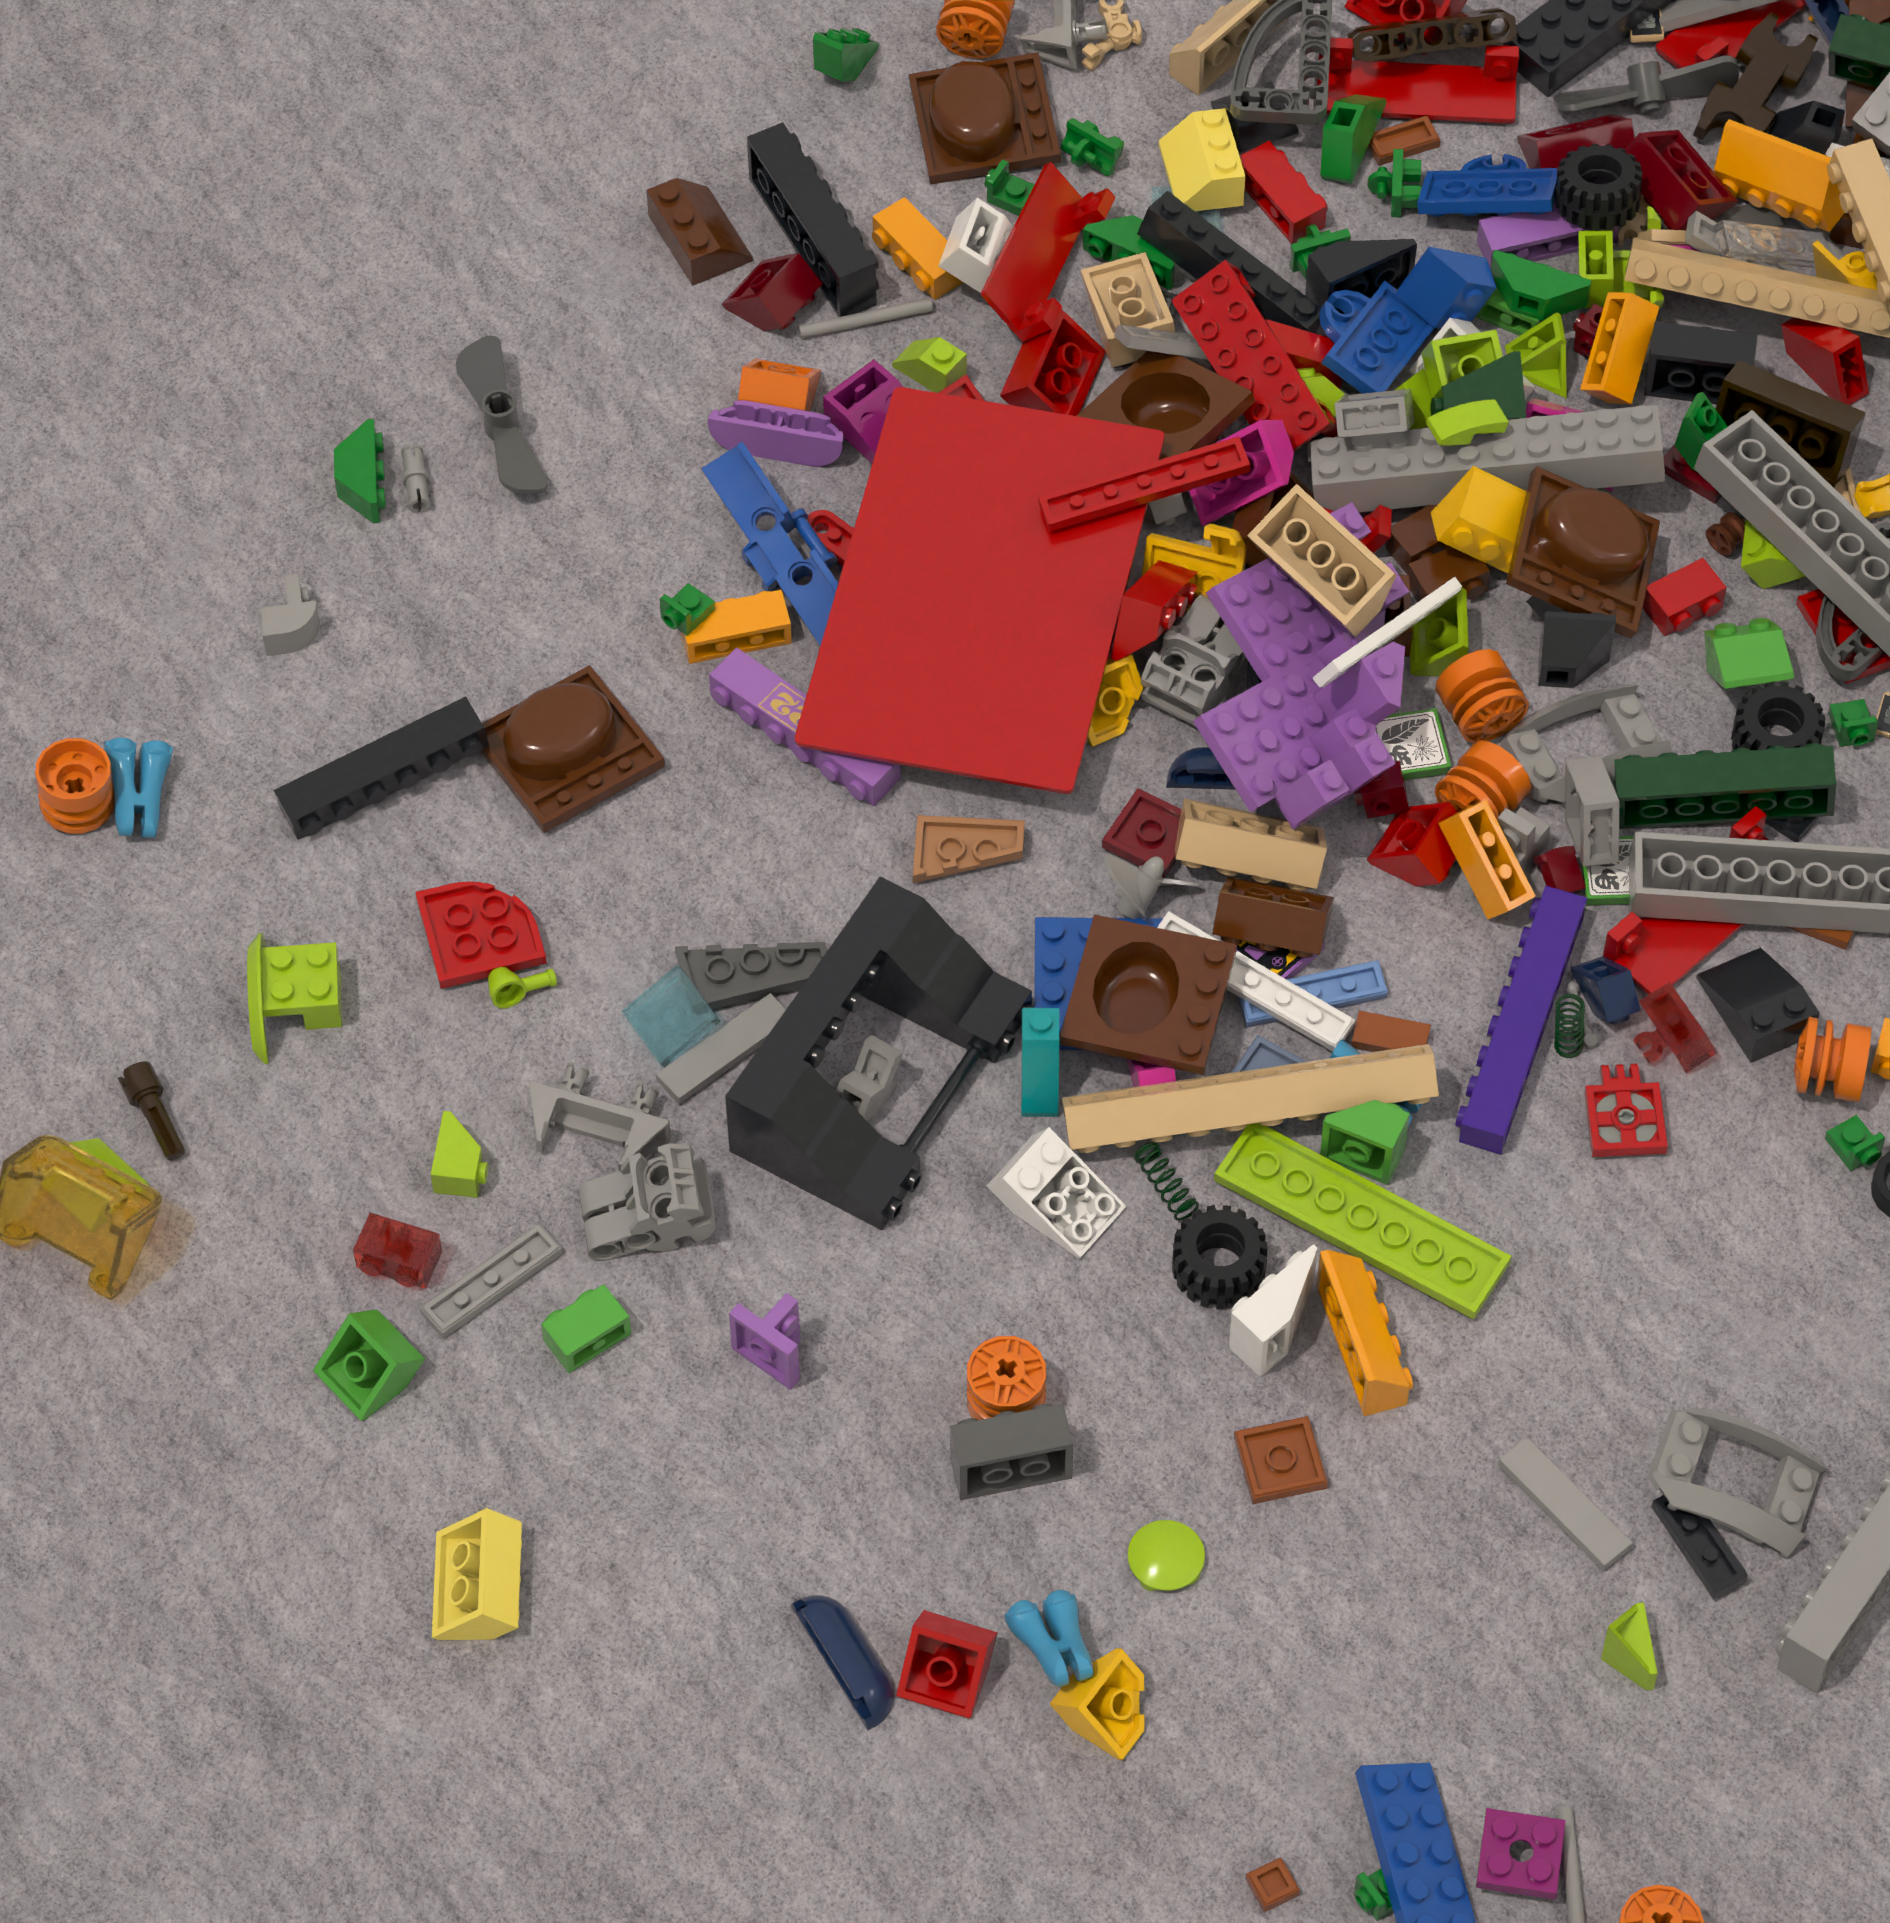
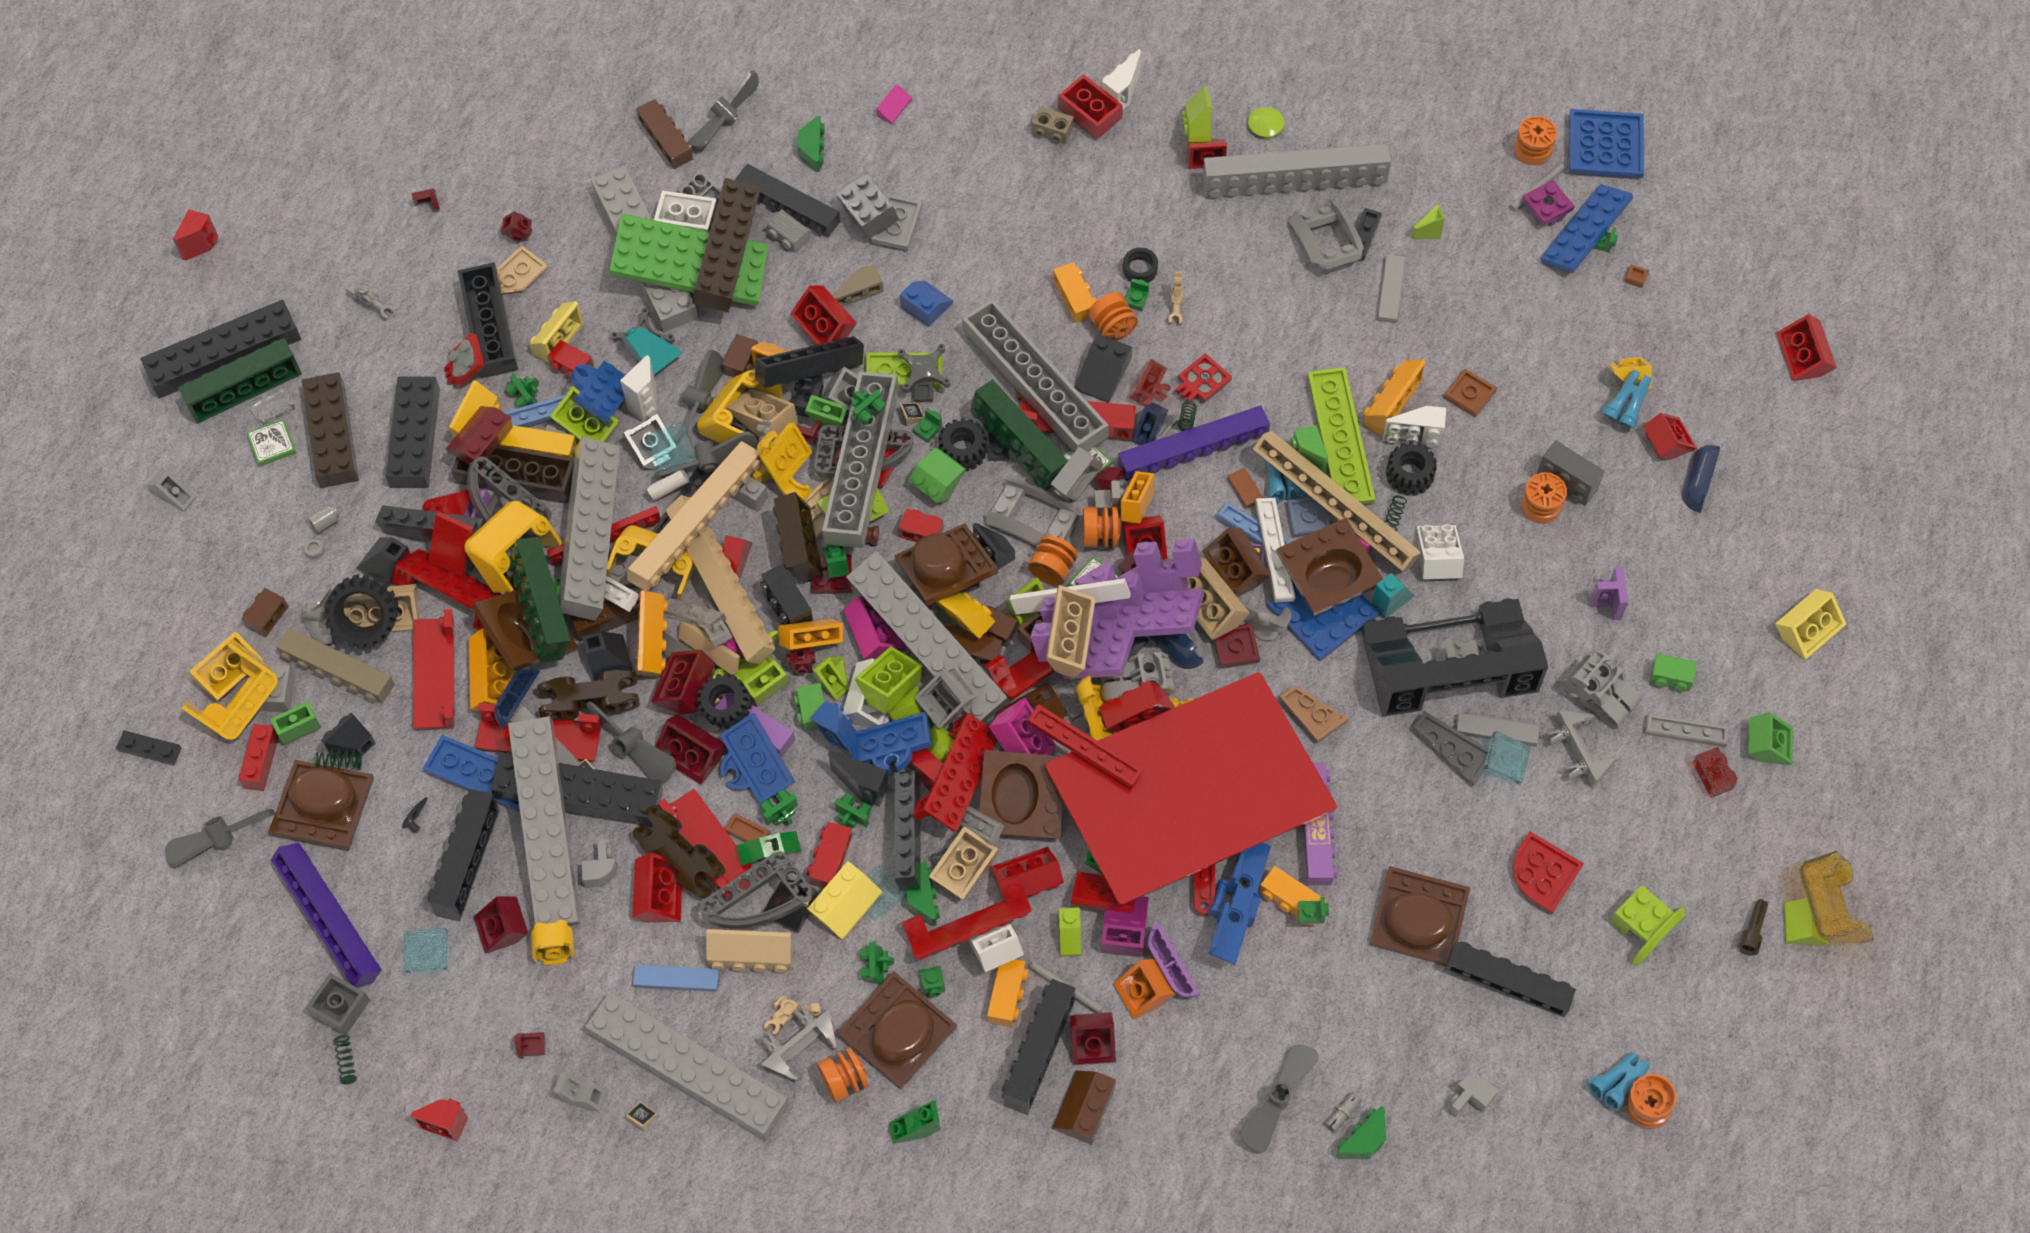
camera: 130 degrees left, 5 degrees up
(457, 1160) = (1654, 784): lime slope -> none
(509, 989) = (1556, 836): lime bar -> none
(1166, 1555) = (1549, 400): lime dish -> none
(1461, 422) = (926, 644): lime slope -> none
(1496, 380) = (897, 659): dark green slope -> none
(1536, 287) = (806, 689): green slope -> none
(1802, 1183) = (1176, 301): none -> tan piece

